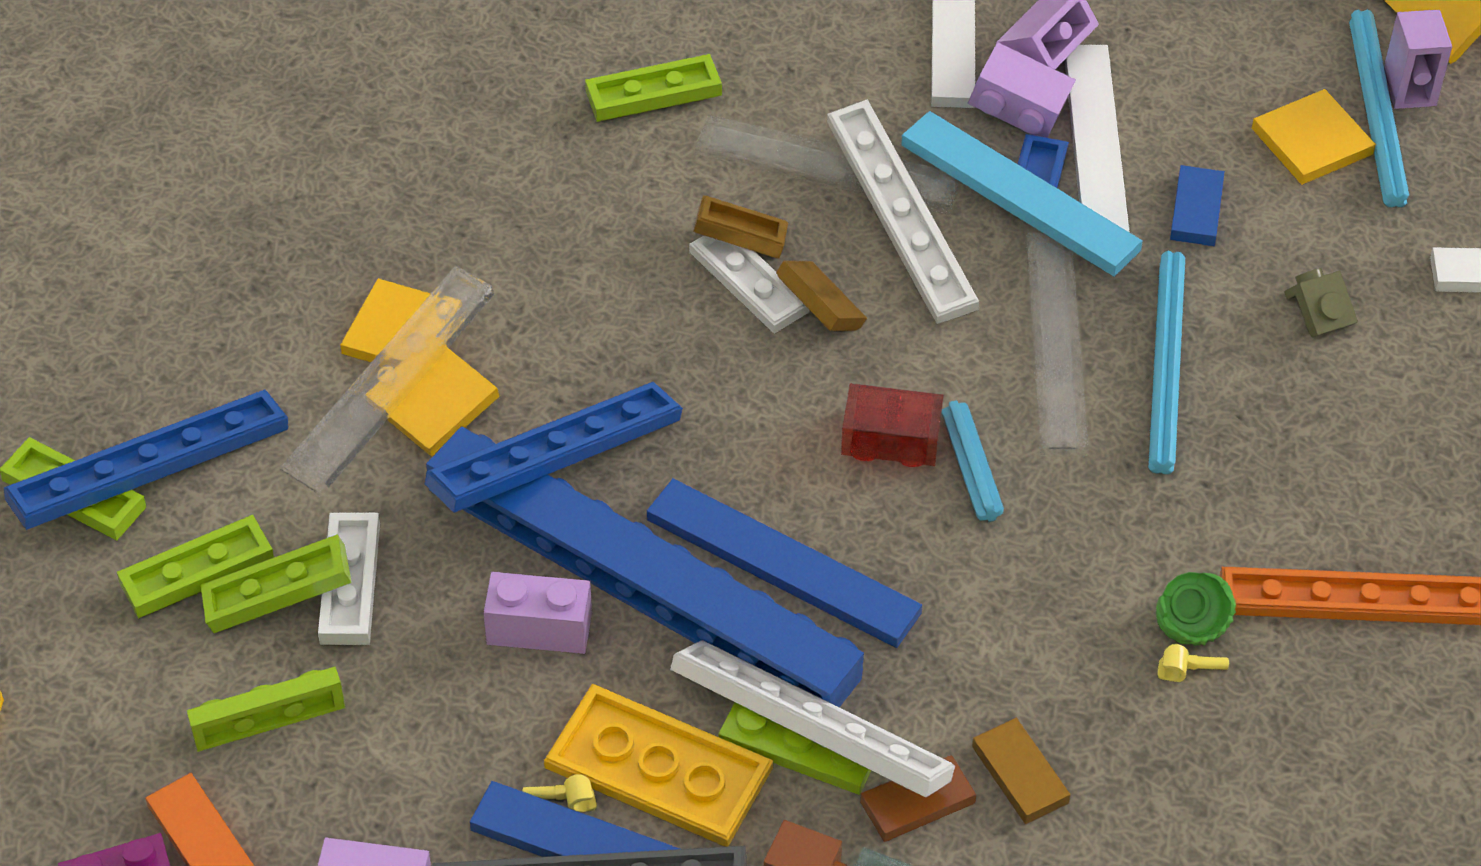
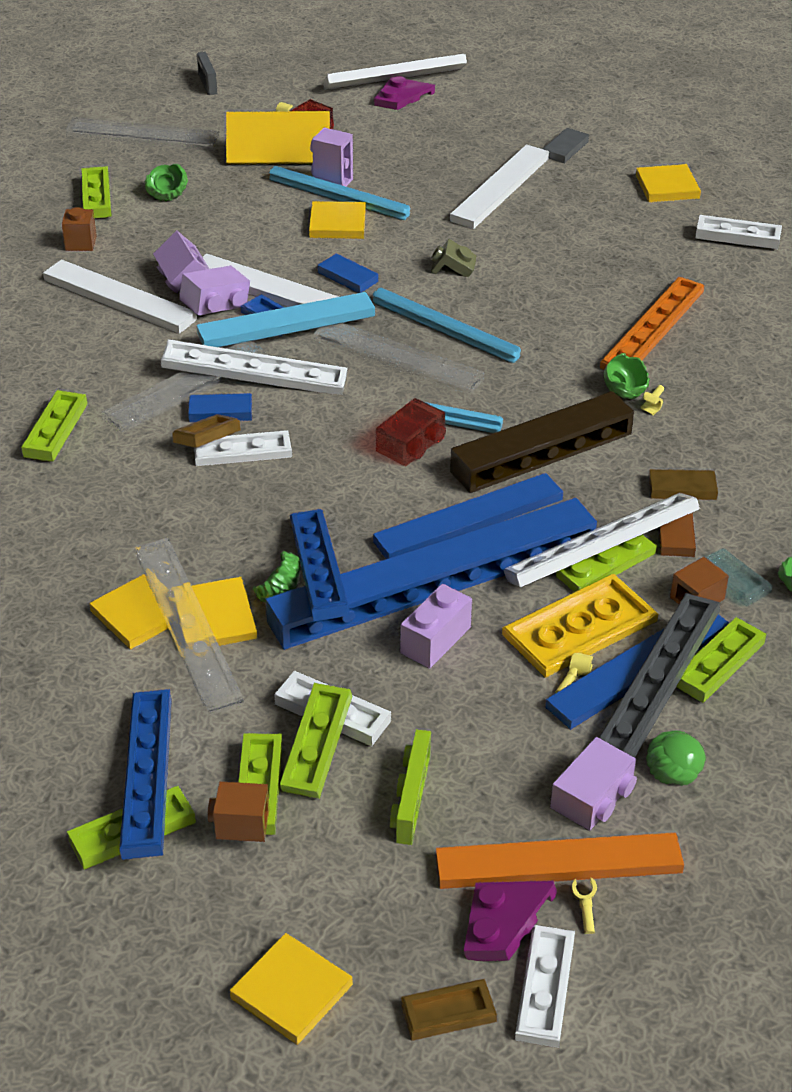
camera: 60 degrees left, 10 degrees down
(116, 565) = (240, 811): none -> dark orange brick
(507, 424) = (282, 579): none -> bright green hair
(809, 218) = (229, 405): none -> blue tile
(821, 296) = (288, 423): pearl gold tile -> none
(982, 573) = (541, 441): none -> dark brown brick

